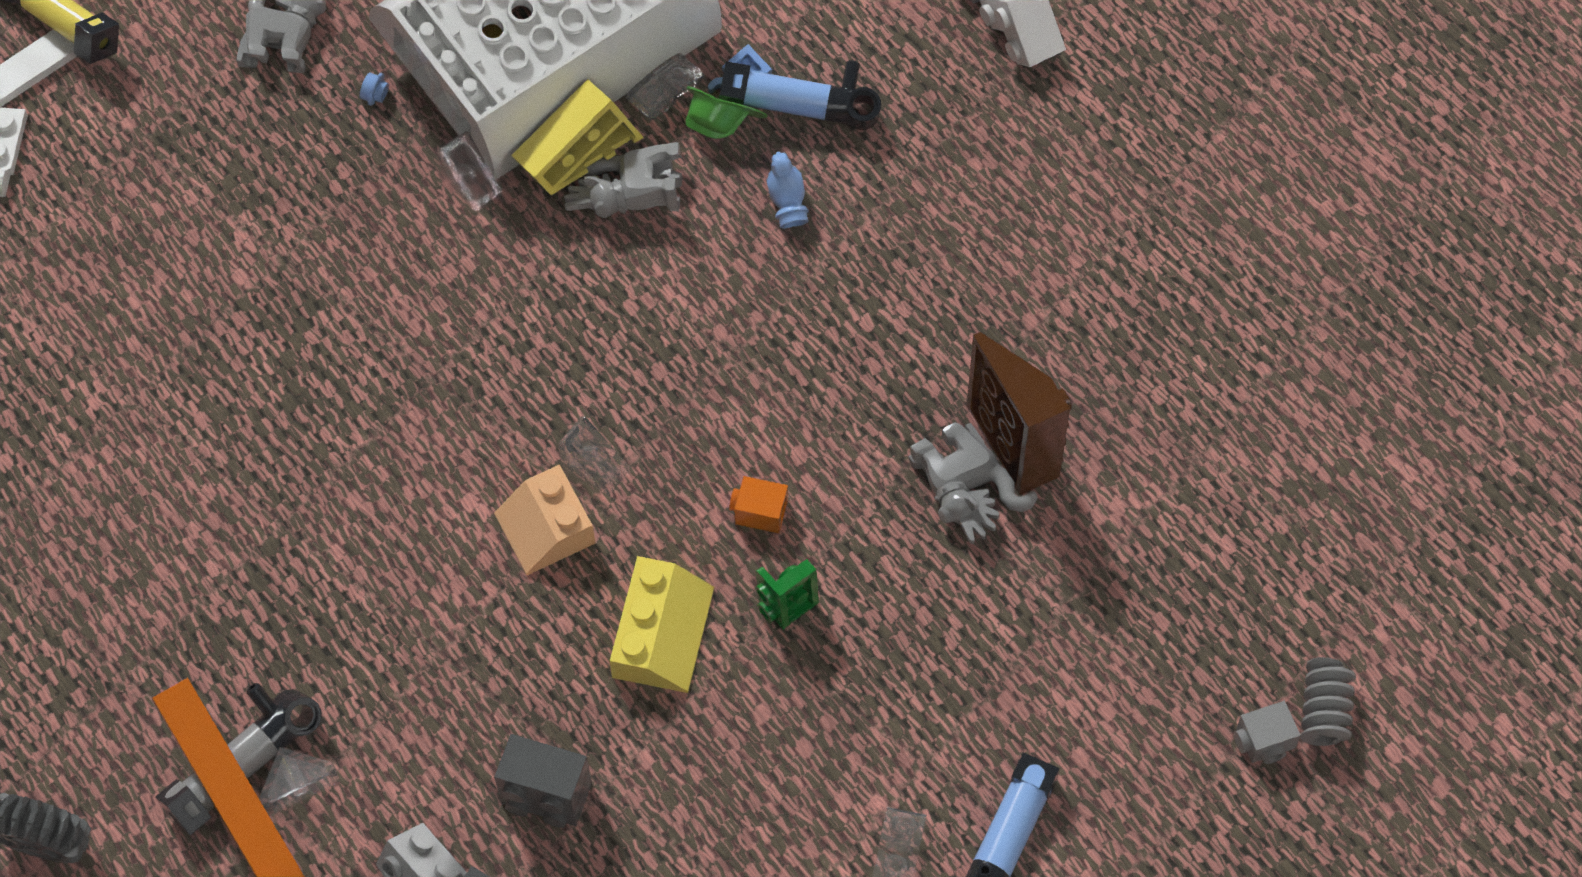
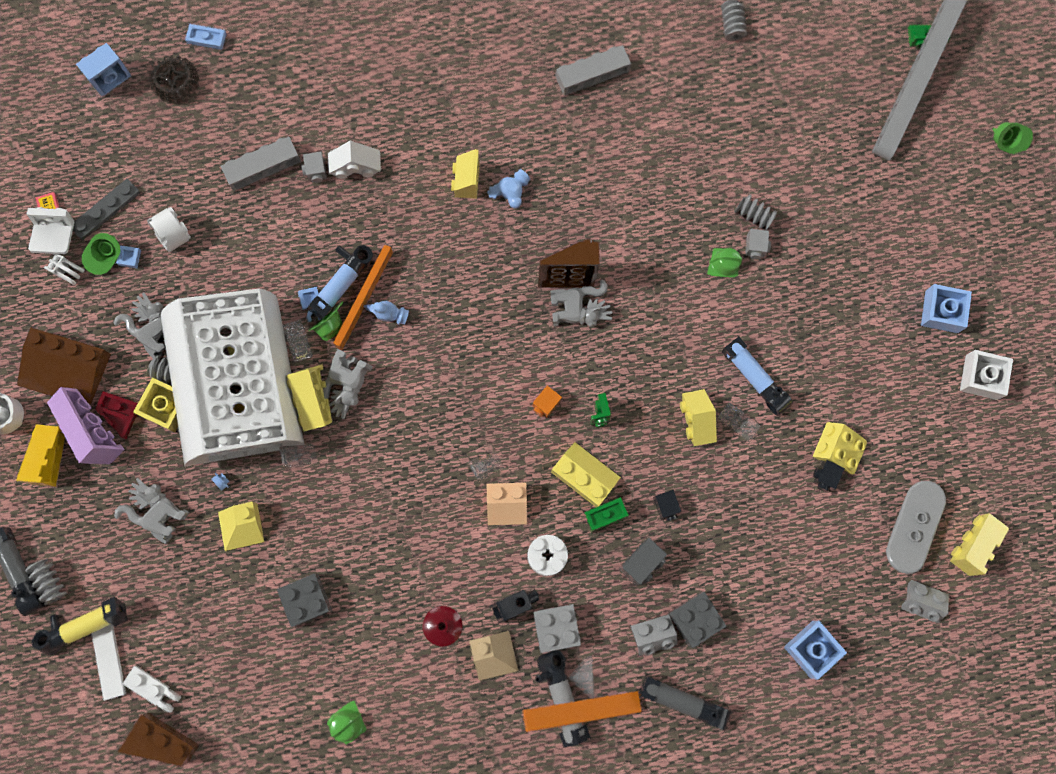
camera: 70 degrees left, 15 degrees up
(57, 448) = (346, 723): none -> bright green piece
(233, 290) = (304, 600): none -> dark grey brick
(268, 616) = (493, 655): none -> tan slope
(287, 535) = (450, 633): none -> dark red dish
(317, 151) = (241, 526): none -> light yellow slope
(359, 593) = (507, 607): none -> black torso
(360, 695) = (556, 628): none -> light grey brick
(480, 603) = (555, 547): none -> white brick
(600, 687) = (606, 515): none -> green panel
(673, 787) = (667, 505): none -> black brick
(794, 143) = (363, 297): none -> orange tile
(863, 766) = (700, 417): none -> light yellow brick
(1102, 198) = (466, 175): none -> light yellow slope
(1121, 277) = (510, 188): none -> light blue animal
(1197, 697) = (724, 263): none -> bright green piece
(1431, 308) = (593, 70): none -> light grey brick

